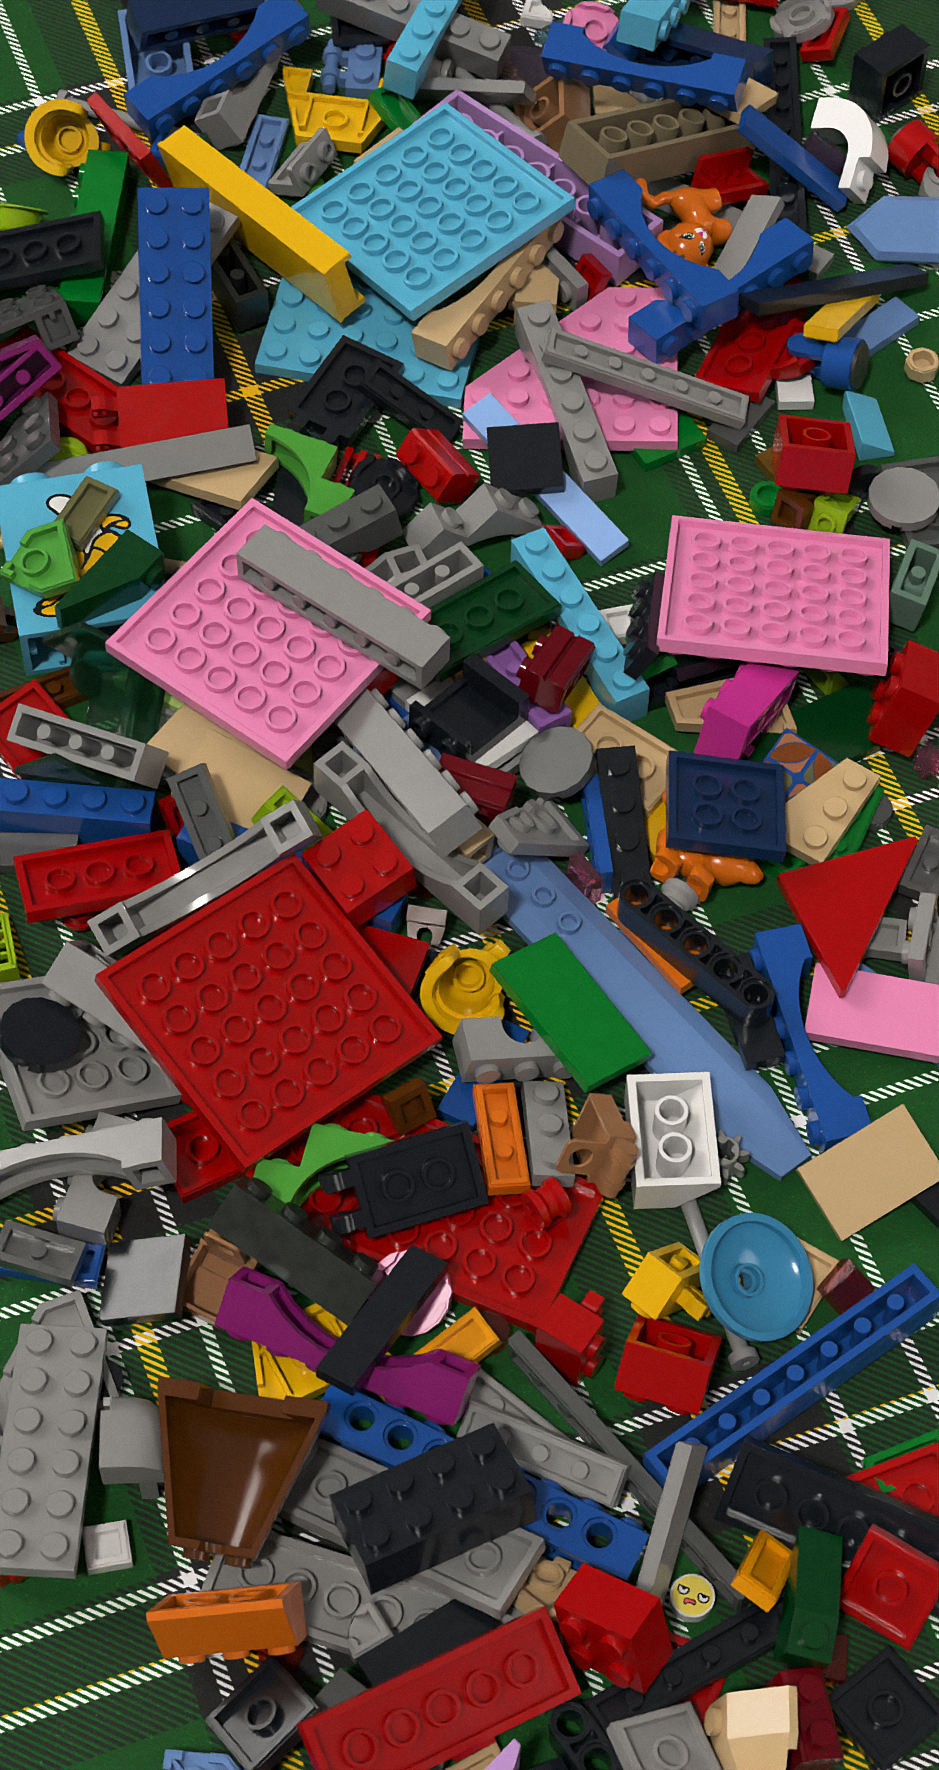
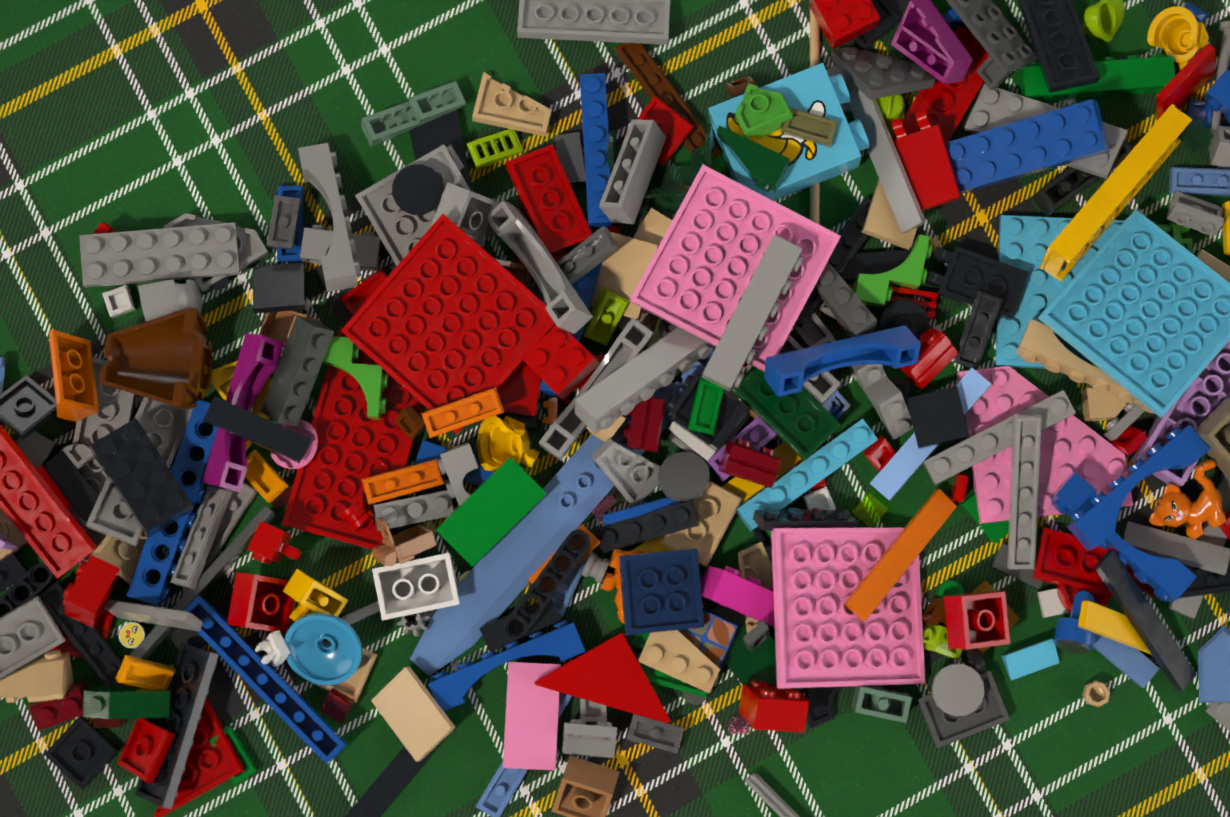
camera: 80 degrees right, 25 degrees up
(408, 1181) = (354, 428): black tile -> none
(411, 1016) = (462, 412): none -> orange tile
(434, 568) = (889, 347): none -> blue arch
(463, 709) = (705, 407): none -> green tile
(628, 462) = (959, 488): none -> red tile
(635, 567) = (869, 510): none -> clear neon green tile
(711, 531) = (900, 555): none -> orange tile
(746, 1351) = (275, 649): none -> white tile
(805, 701) = (756, 636): none -> dark grey tile

